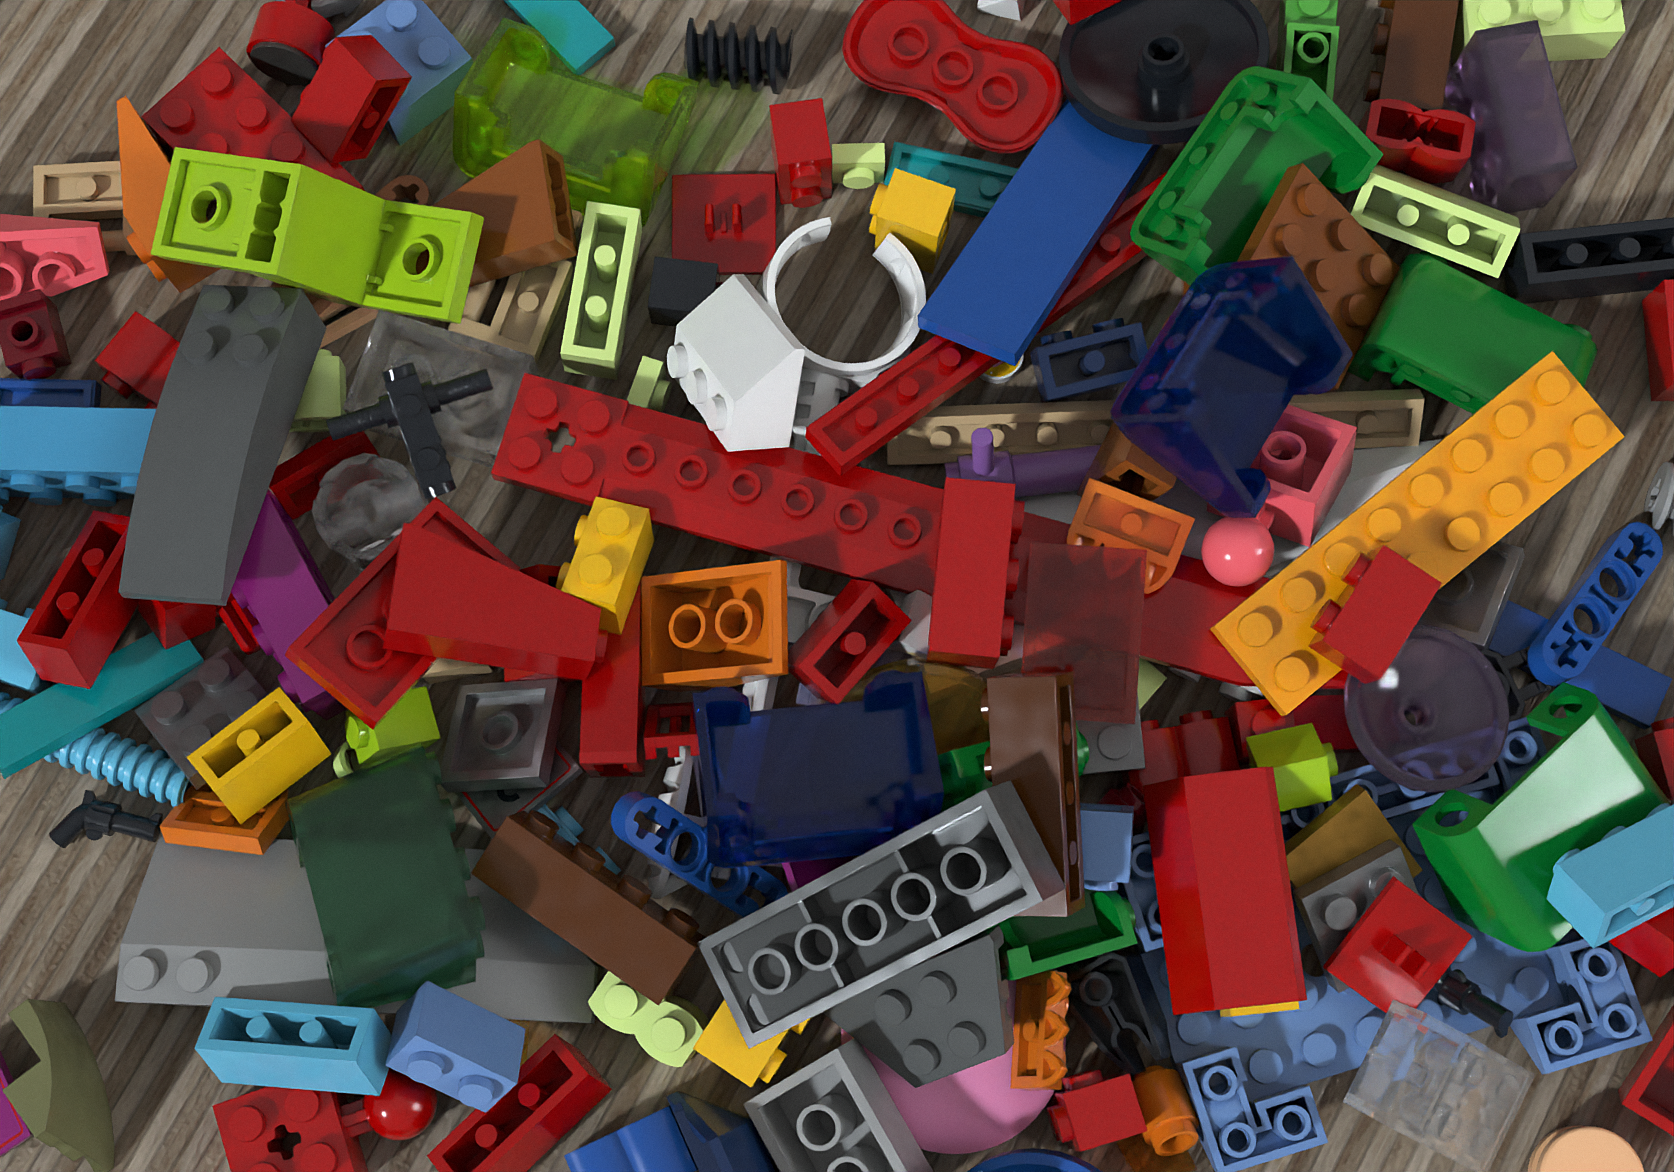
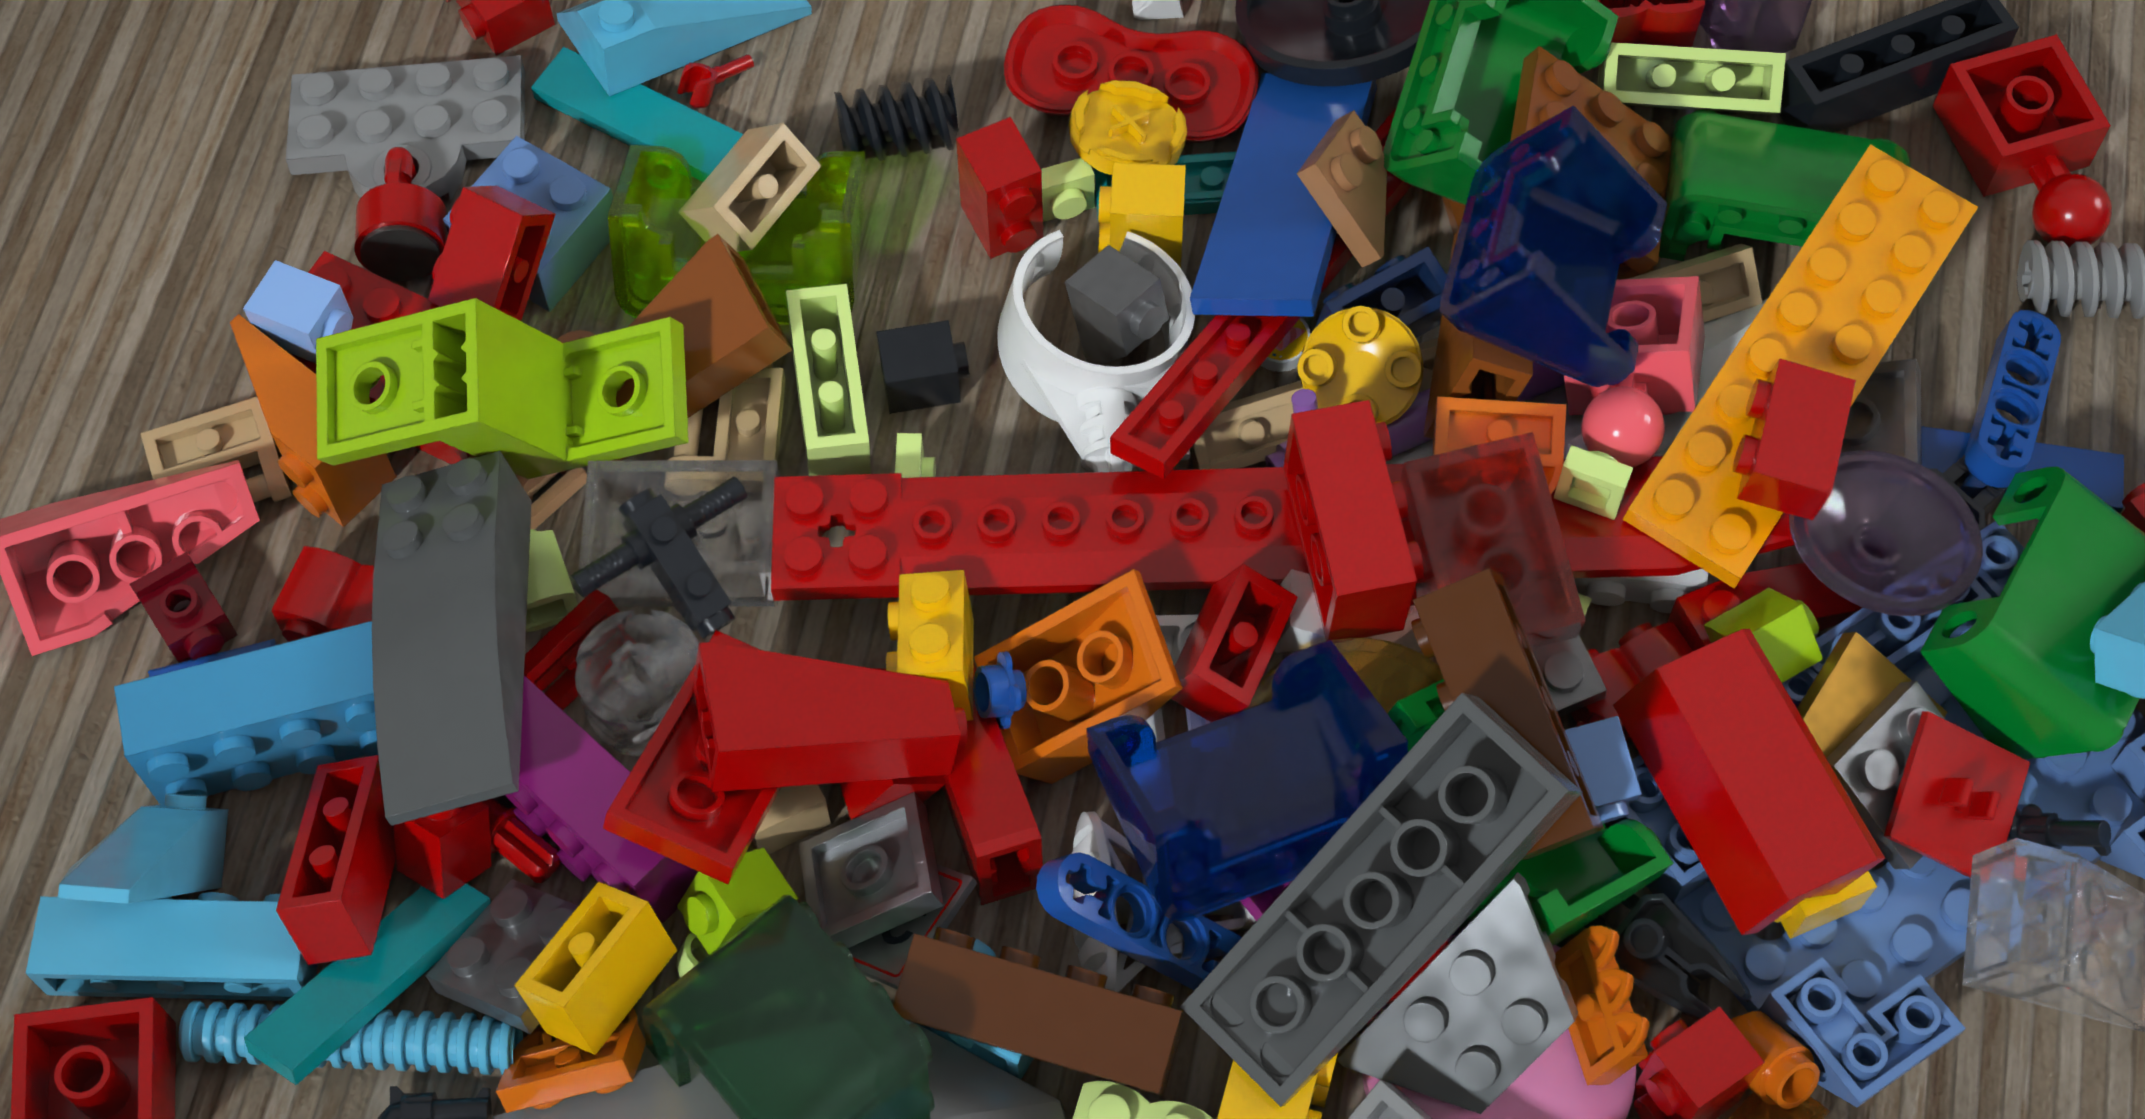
camera: 15 degrees left, 15 degrees down
(176, 107) = (298, 309): none -> light blue brick
(590, 89) = (751, 187): none -> tan brick
(647, 620) = (999, 690): none -> blue plate
(675, 738) = (1069, 807): red tile -> none
(725, 220) = (936, 284): red piece -> none
(739, 367) = (1013, 402): white slope -> none
(858, 296) = (1115, 305): none -> flat silver slope
(927, 127) = (1126, 126): none -> yellow tile
(1045, 417) = (1361, 358): none -> yellow dish
(1090, 247) = (1350, 185): none -> medium nougat wing
(1194, 592) = (1593, 482): none -> yellowish green plate

